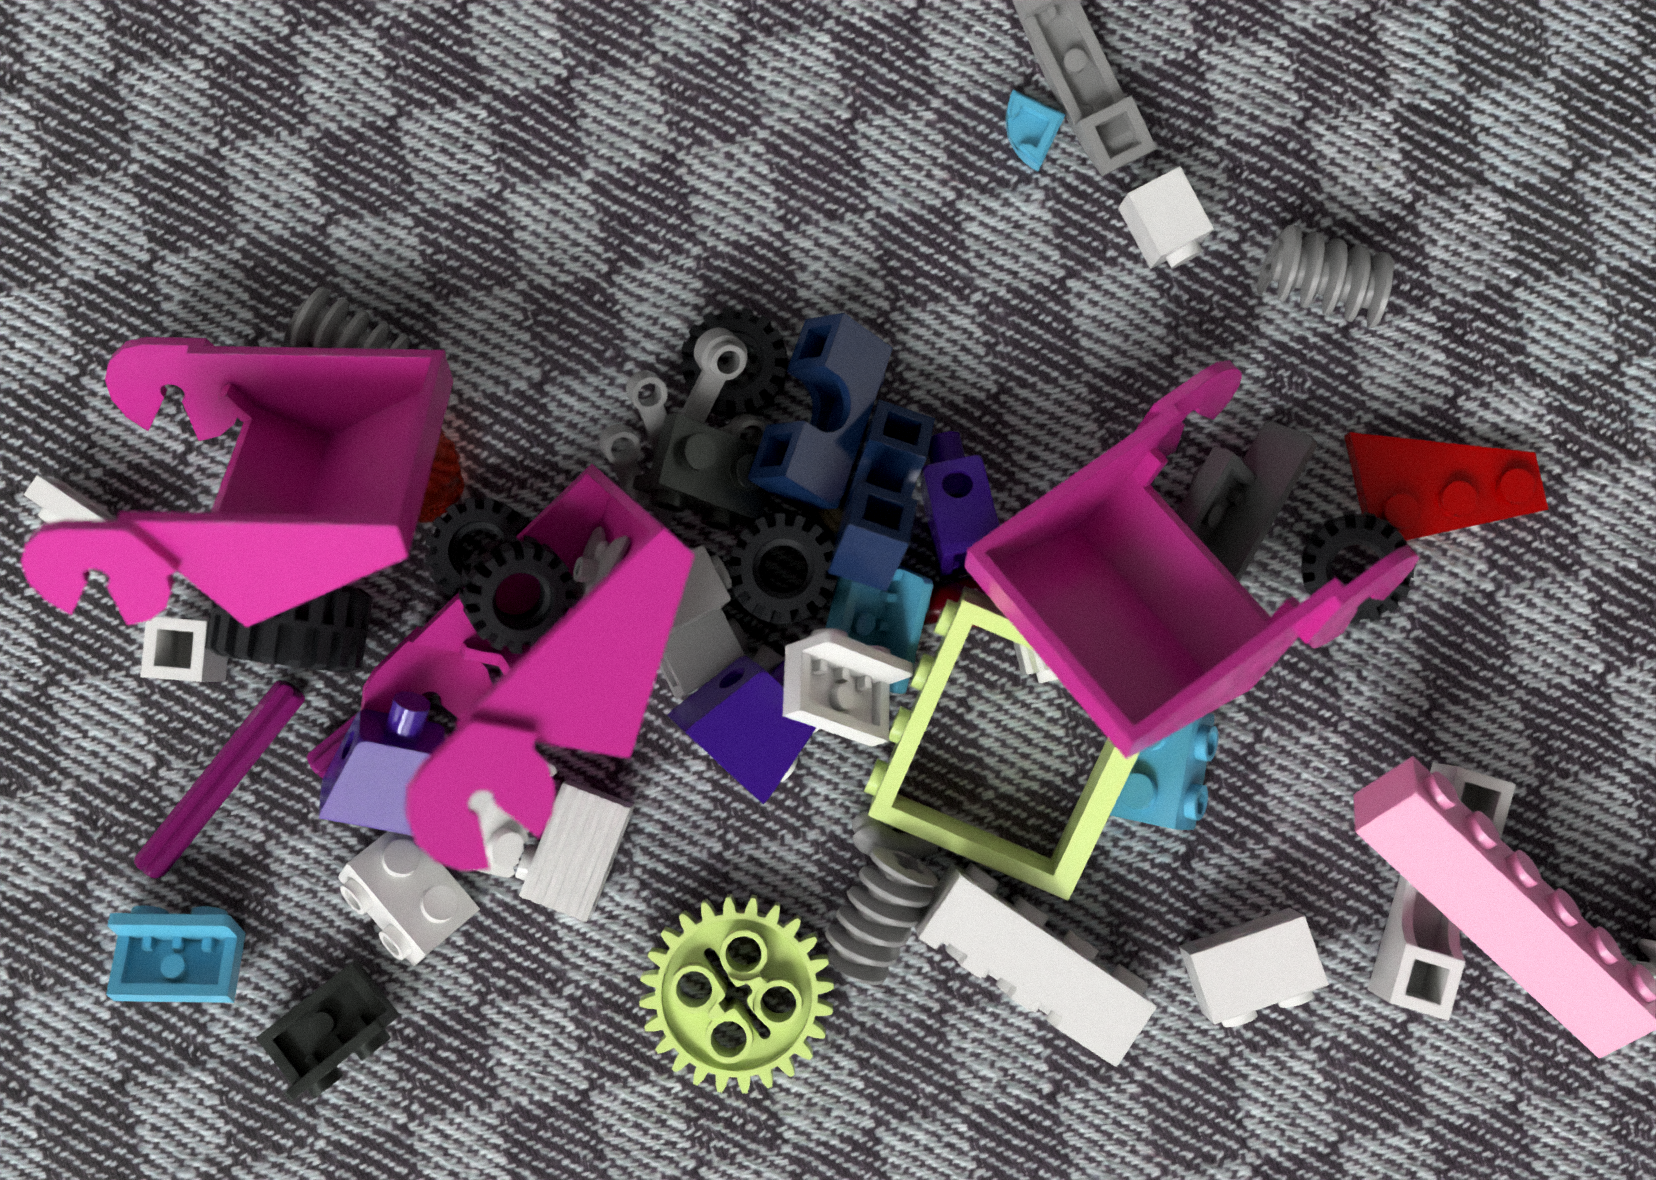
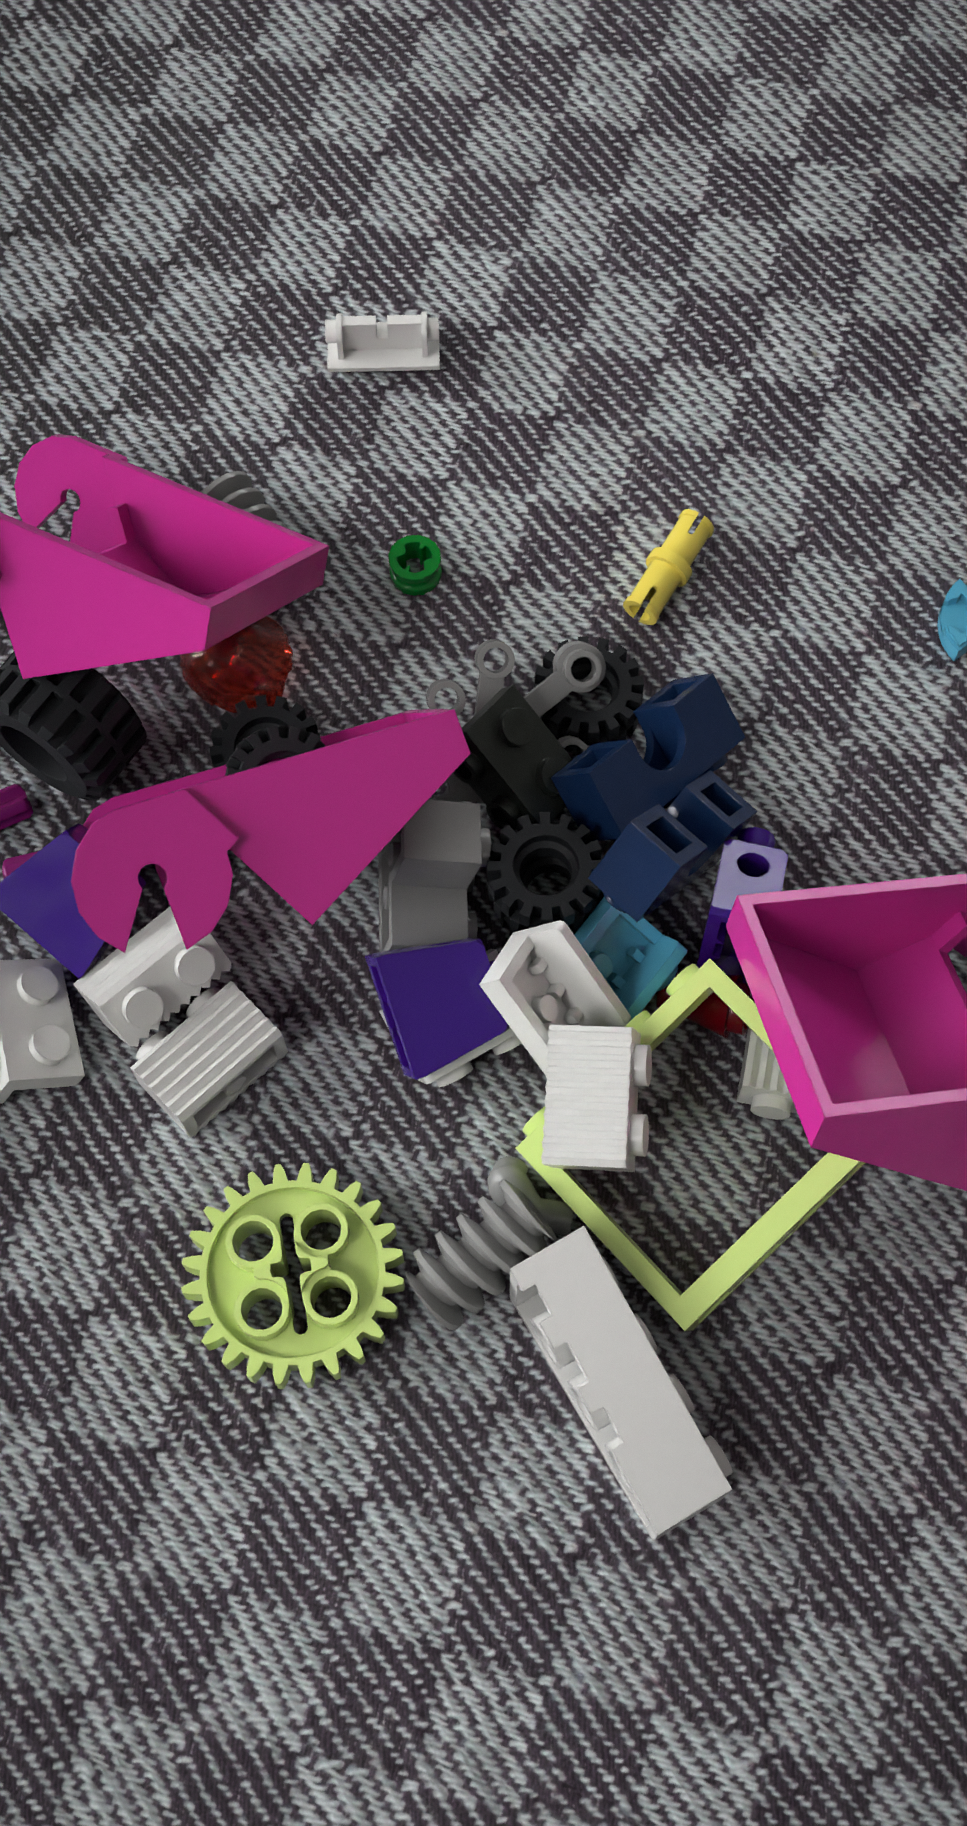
camera: 30 degrees right, 20 degrees down
(371, 76) = (393, 345): none -> white hinge
(500, 301) = (415, 582): none -> green bush
(748, 197) = (668, 567): none -> light yellow pin
(919, 761) = (595, 1098): none -> white brick
(1169, 778) = (848, 1254): medium azure bracket -> none
(1254, 967) = (858, 1509): white brick -> none

